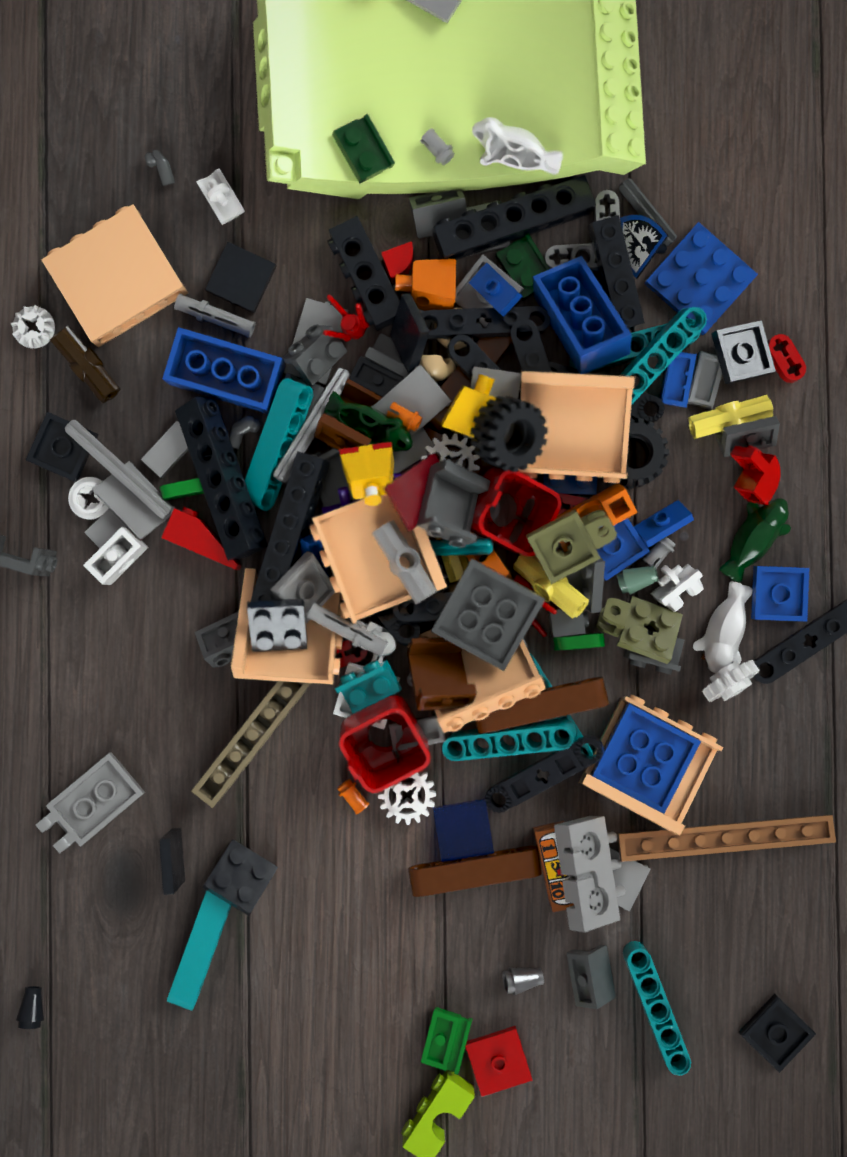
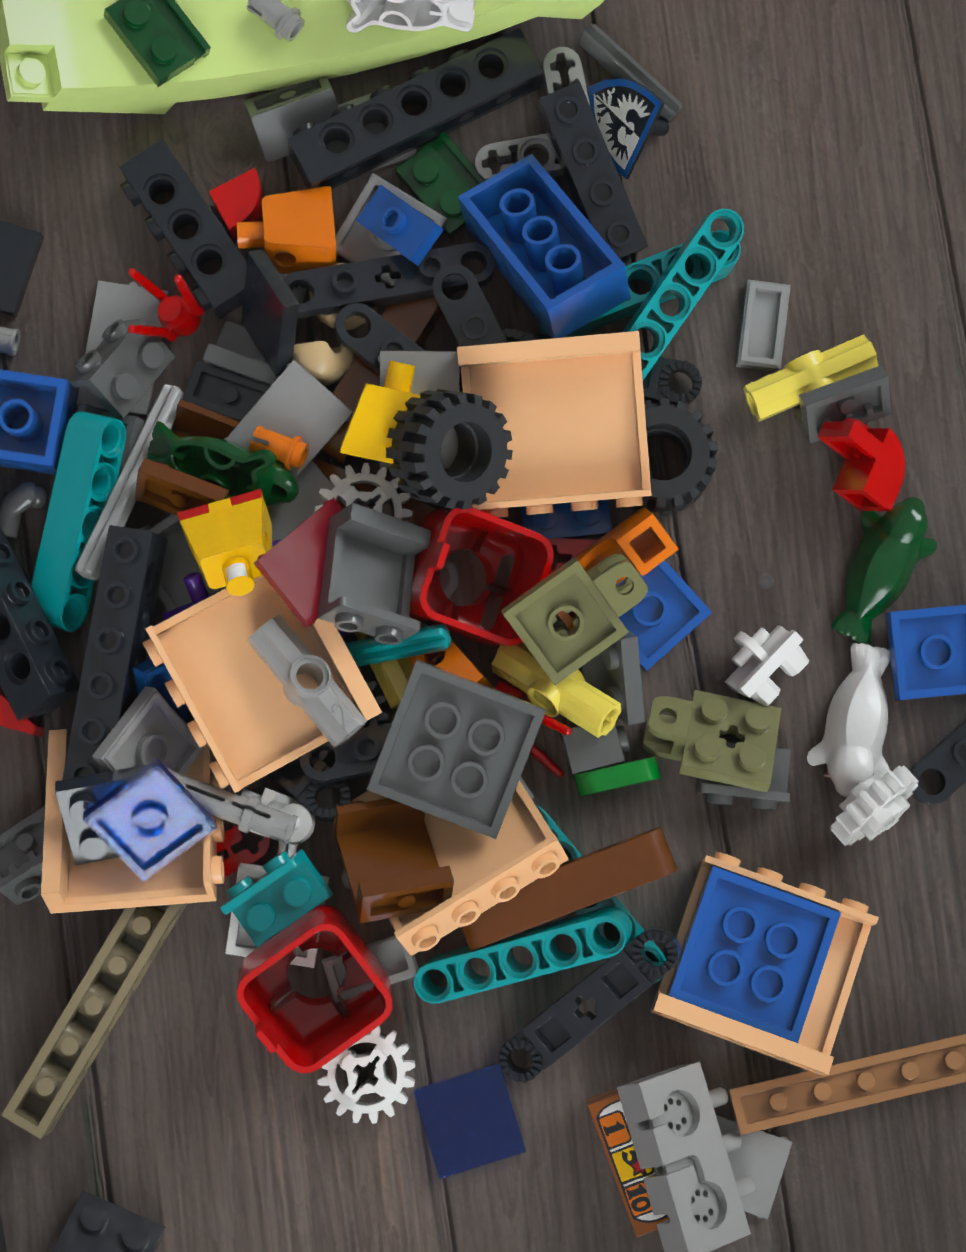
camera: 10 degrees left, 5 degrees down
(300, 632) = (149, 819): none -> clear blue tile
(352, 796) = (276, 1088): orange pin -> none
(475, 871) = (497, 1187): reddish brown beam -> none
(635, 579) = (696, 660): sand green cone -> none
(659, 552) = (728, 611): light grey pin -> none
(663, 523) = (728, 563): blue plate -> none
(678, 380) = (717, 330): blue plate -> none
(701, 275) = (731, 159): blue plate -> none
(743, 352) = (815, 272): plate -> none
(791, 355) = (893, 266): red beam -> none

